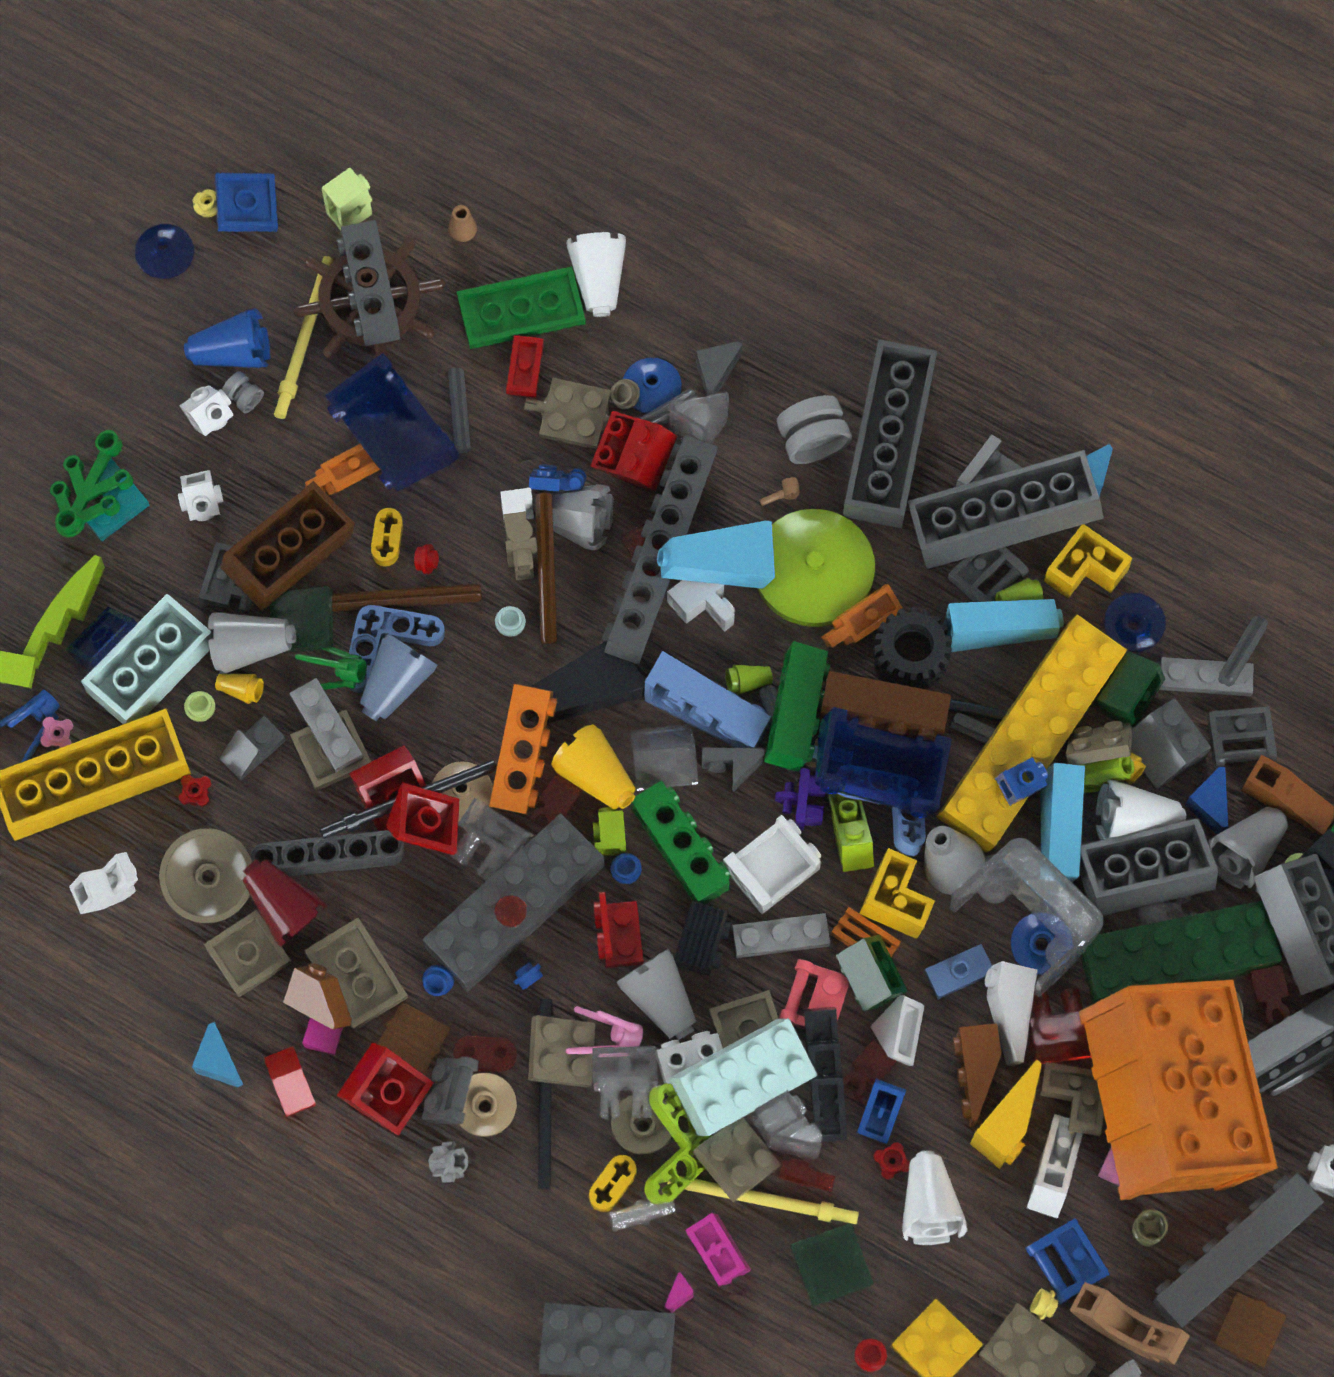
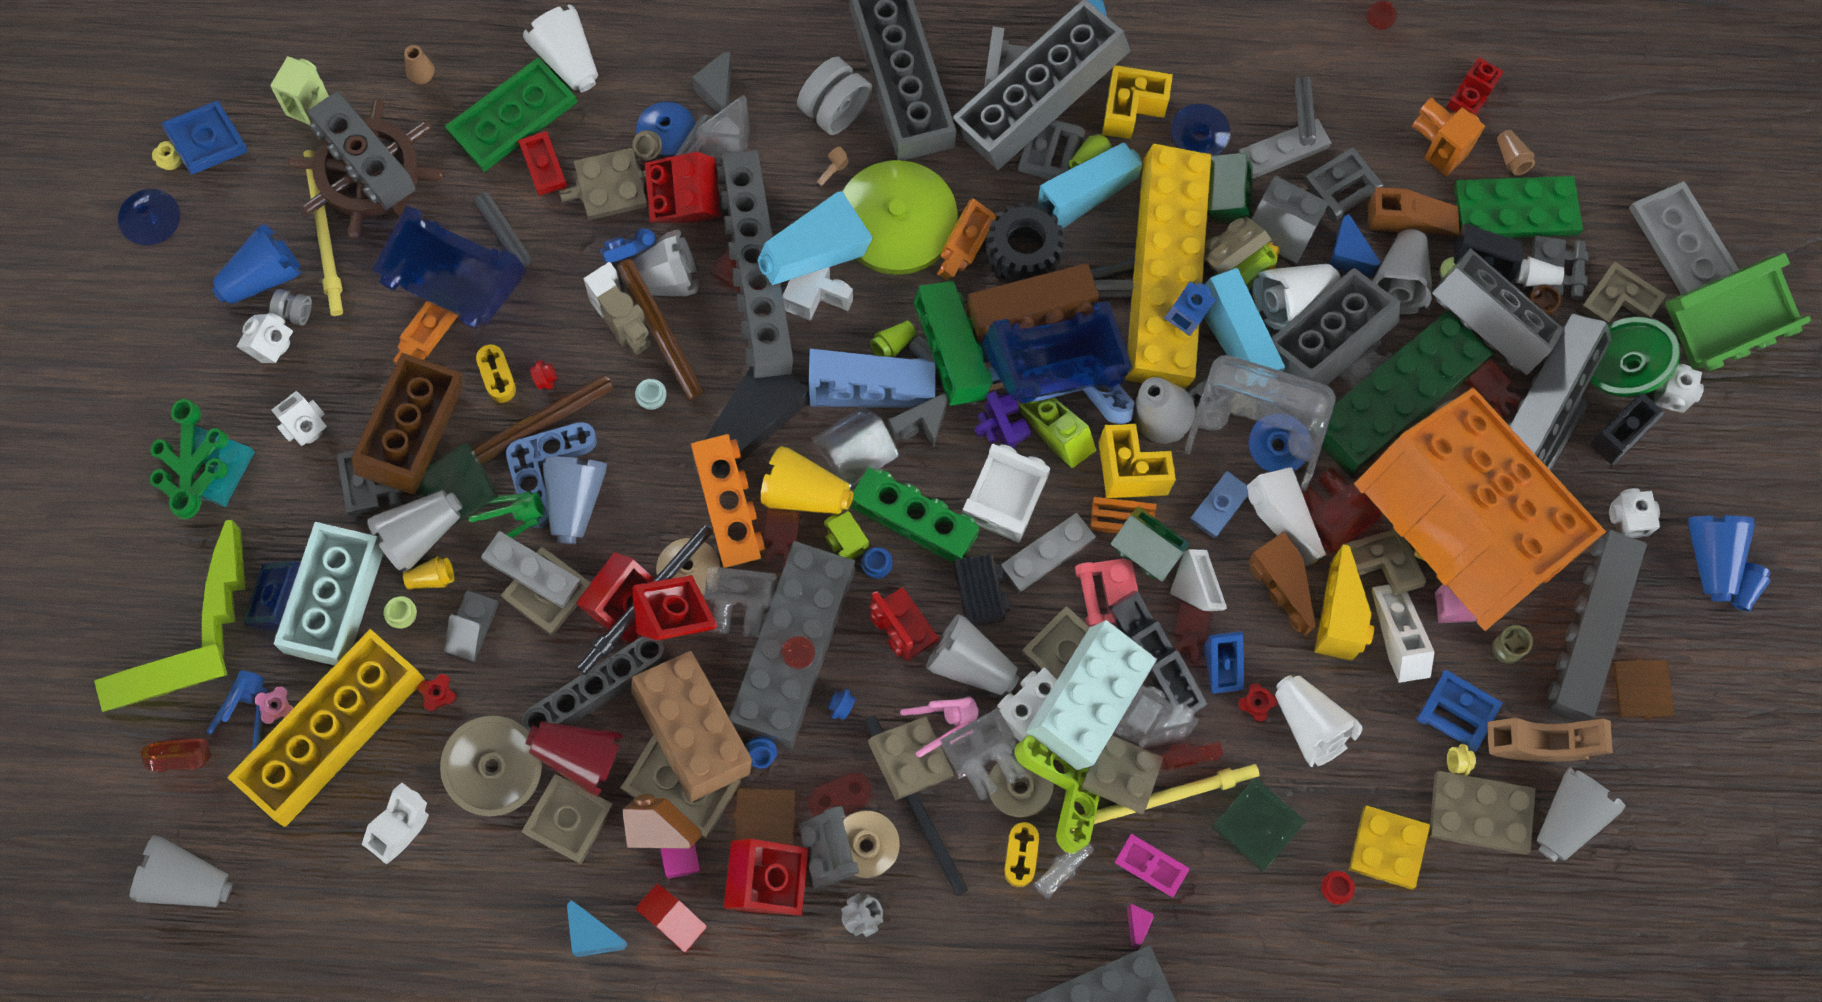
camera: 30 degrees left, 0 degrees up
(389, 927) = (691, 726): none -> medium nougat brick

